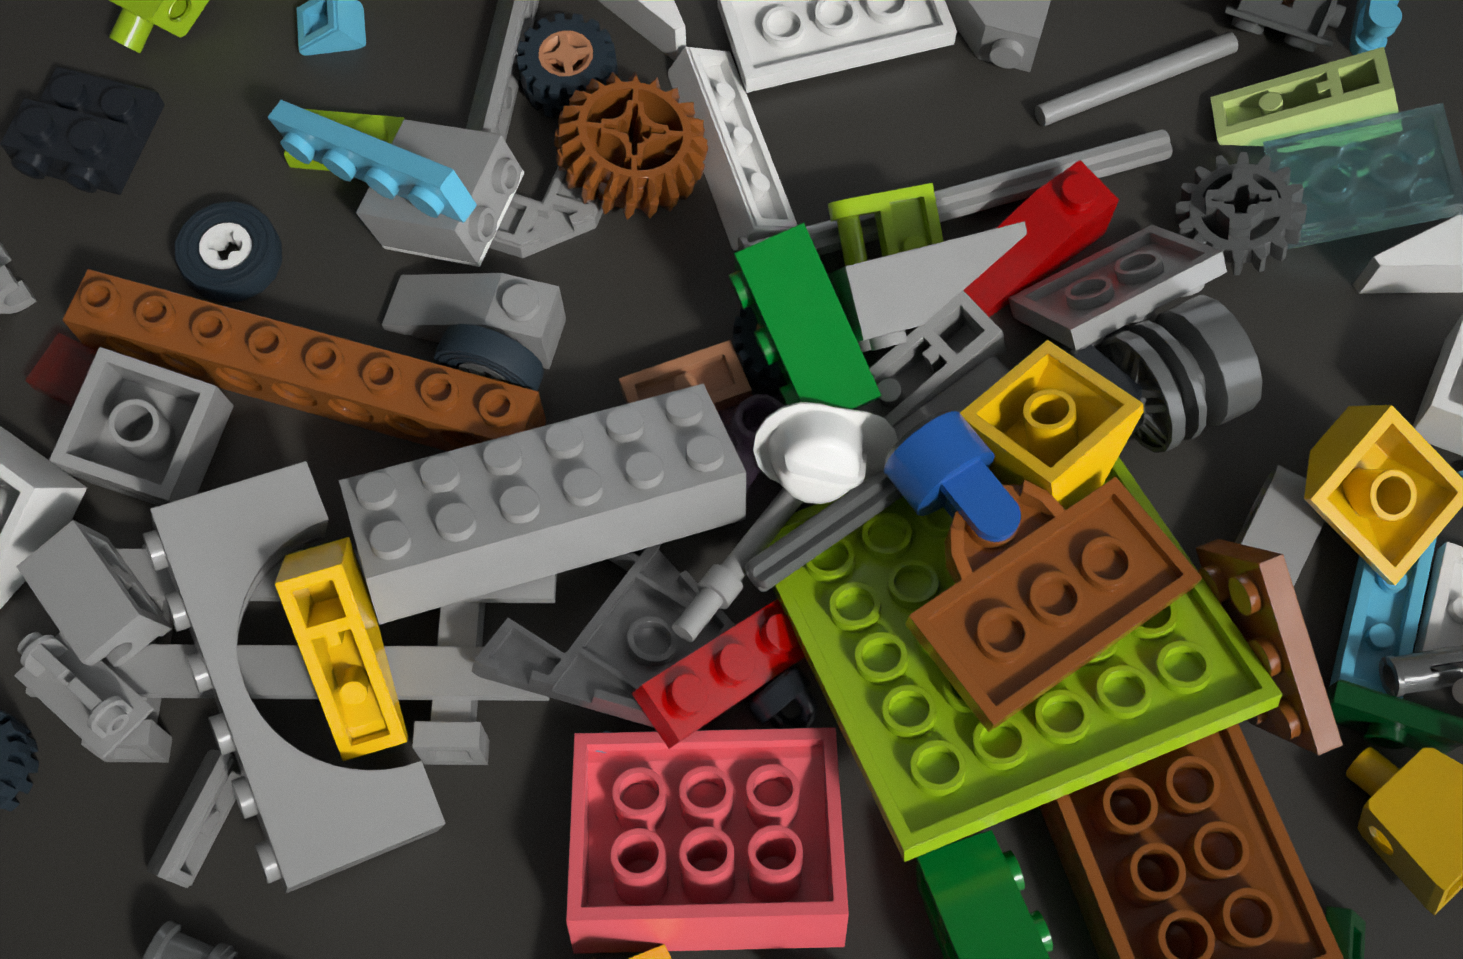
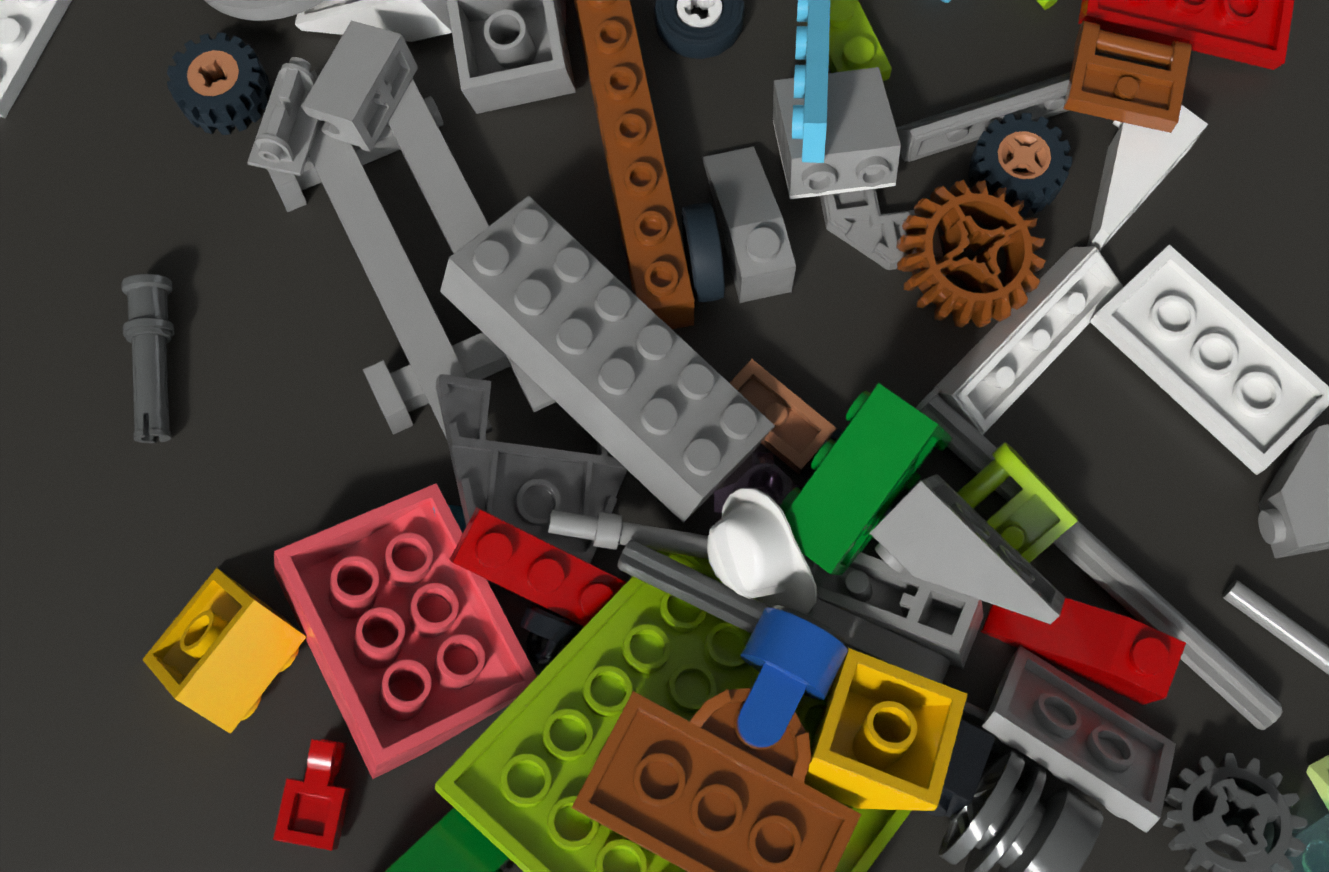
camera: 65 degrees right, 5 degrees up
(196, 820) = (252, 256): light grey slope -> none
(309, 811) = (279, 322): light grey arch -> none
(342, 647) = (403, 271): yellow slope -> none

